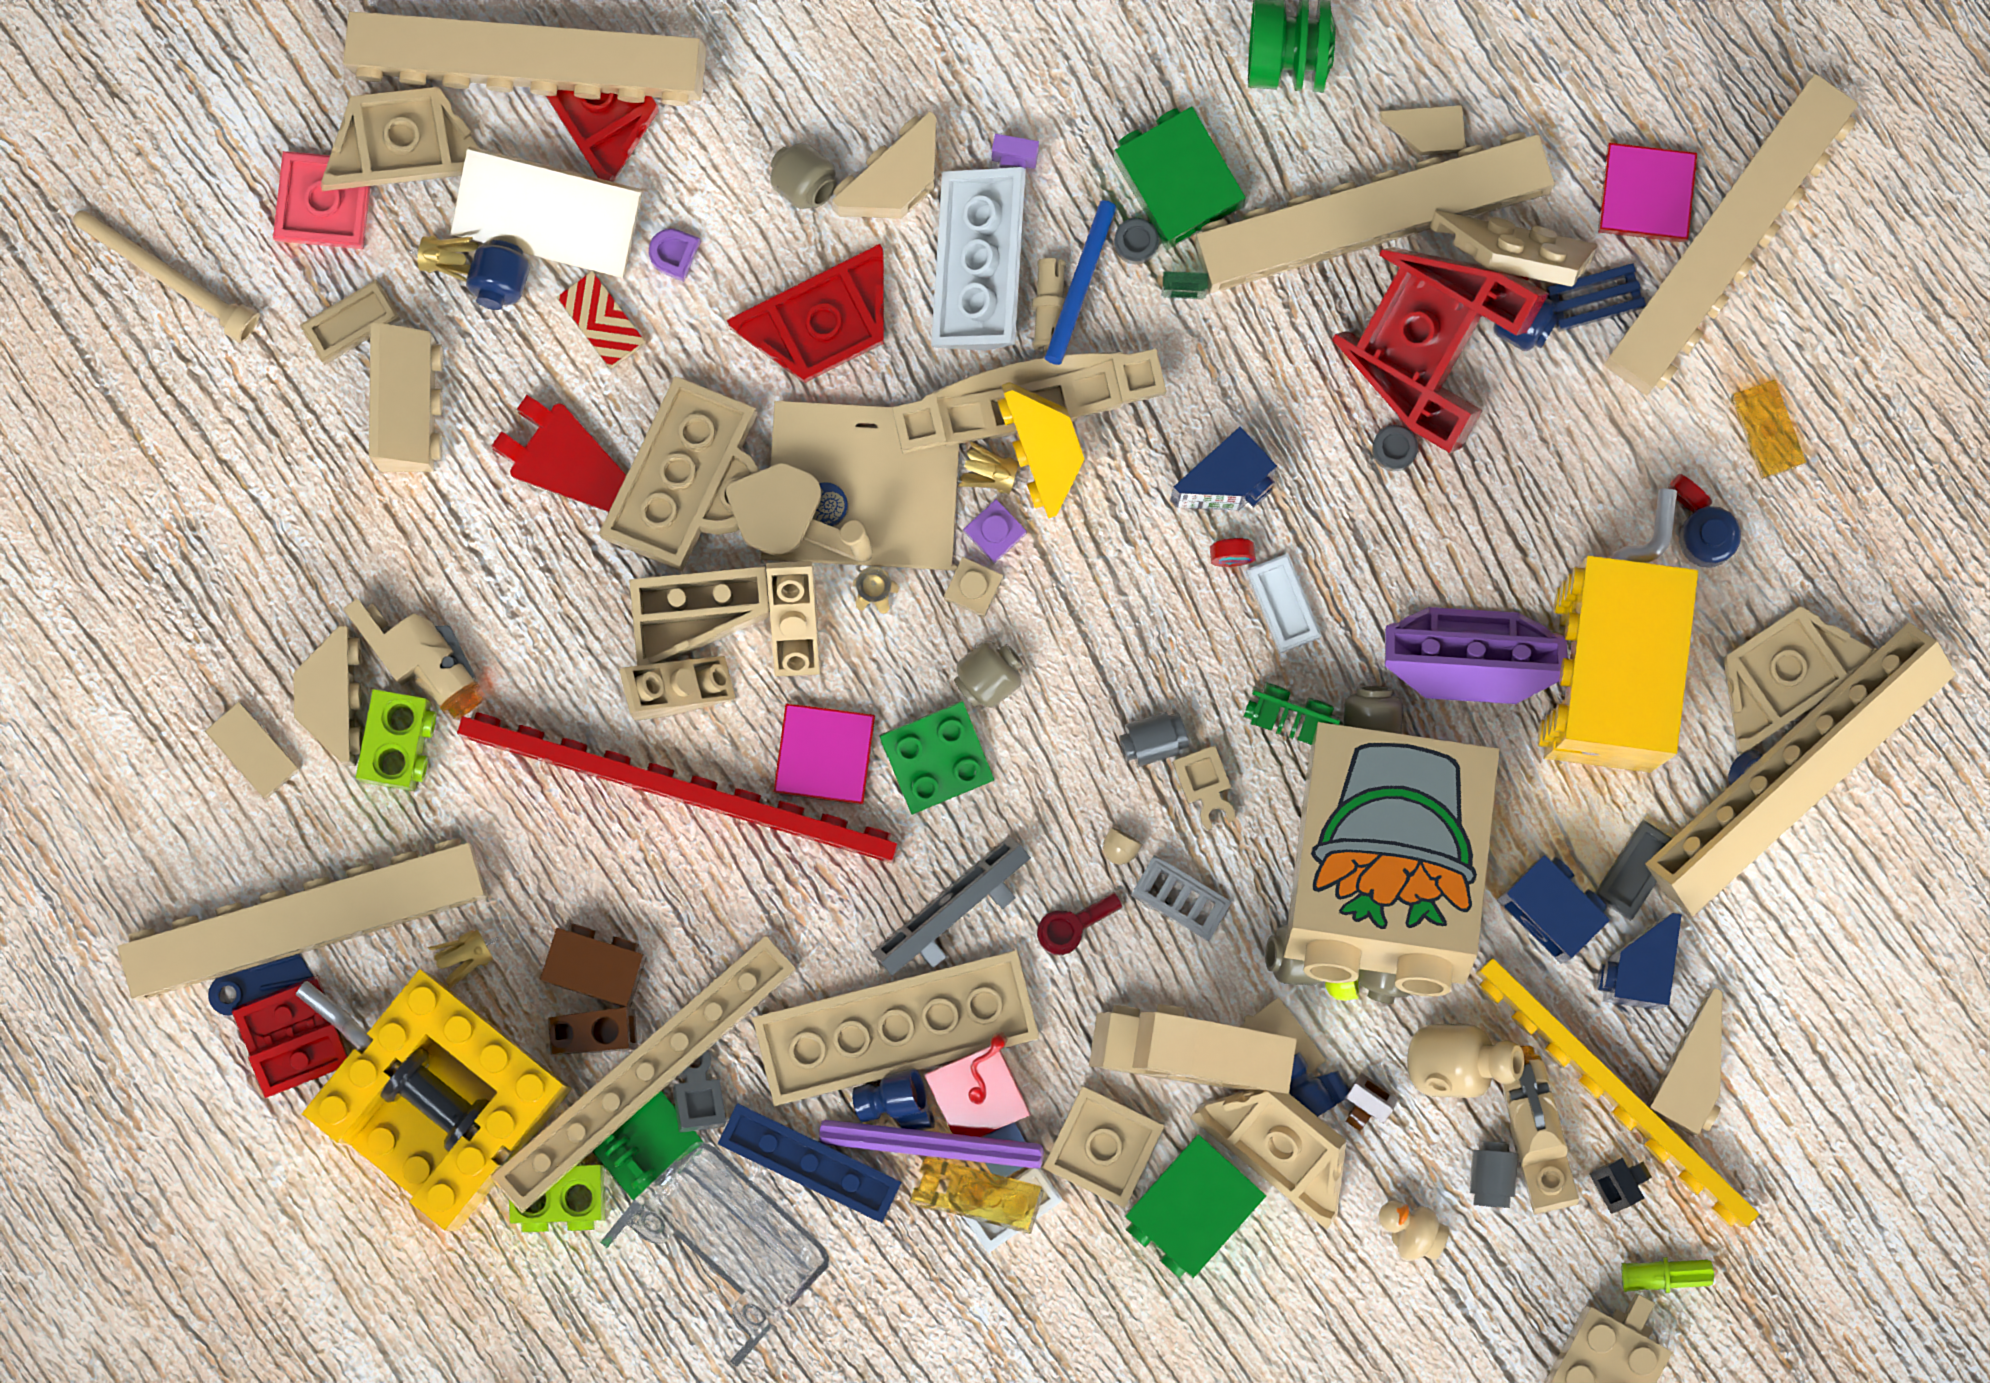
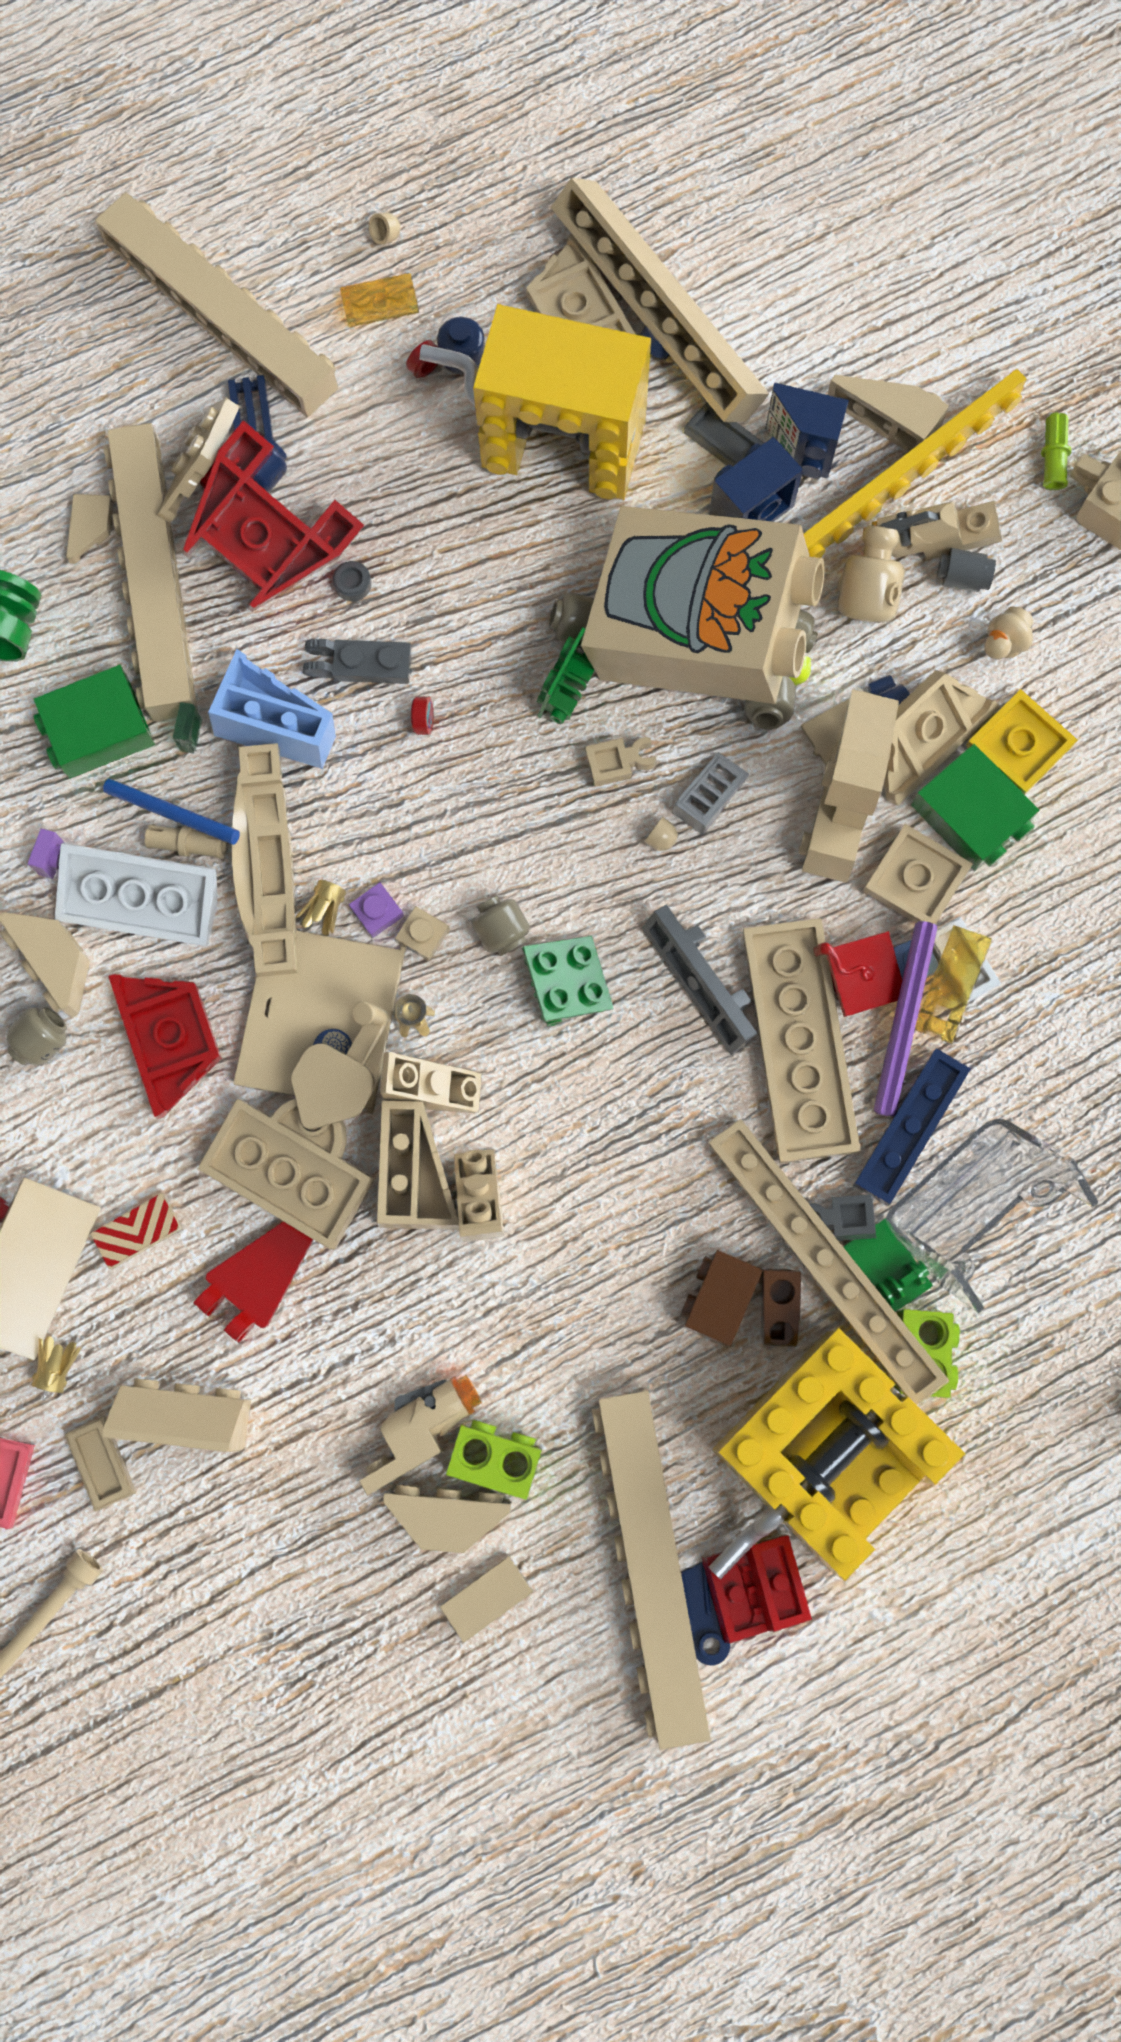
camera: 80 degrees left, 5 degrees down
(467, 947) = (699, 1418): pearl gold piece -> none
(498, 274) = (78, 1319): dark blue head -> none
(660, 781) = (560, 1221): red plate -> none
(673, 252) = (85, 1160): medium lavender tile -> none
(824, 754) = (552, 1076): dark pink tile -> none
(900, 1096) = (860, 1042): dark blue piece -> none
(1045, 444) = (310, 850): yellow slope -> none
(1062, 930) = (729, 892): dark red plate -> none
(1136, 241) = (143, 766): dark grey tile -> none
(1154, 738) = (573, 796): dark grey brick -> none
(1206, 376) = (261, 710): none -> light blue wedge
(1228, 477) = (357, 703): dark blue slope -> none
(1283, 603) = (470, 683): white tile -> none
(1283, 1257) = (1023, 741): none -> yellow plate
(1296, 474) = (360, 661): none -> dark grey hinge
(1369, 1101) = (898, 660): tile -> none
(1474, 654) = (536, 528): medium lavender wedge -> none
(1620, 1184) = (981, 475): black tile -> none
(1647, 192) = (171, 365): dark pink tile -> none
(1862, 422) = (384, 228): none -> tan hinge

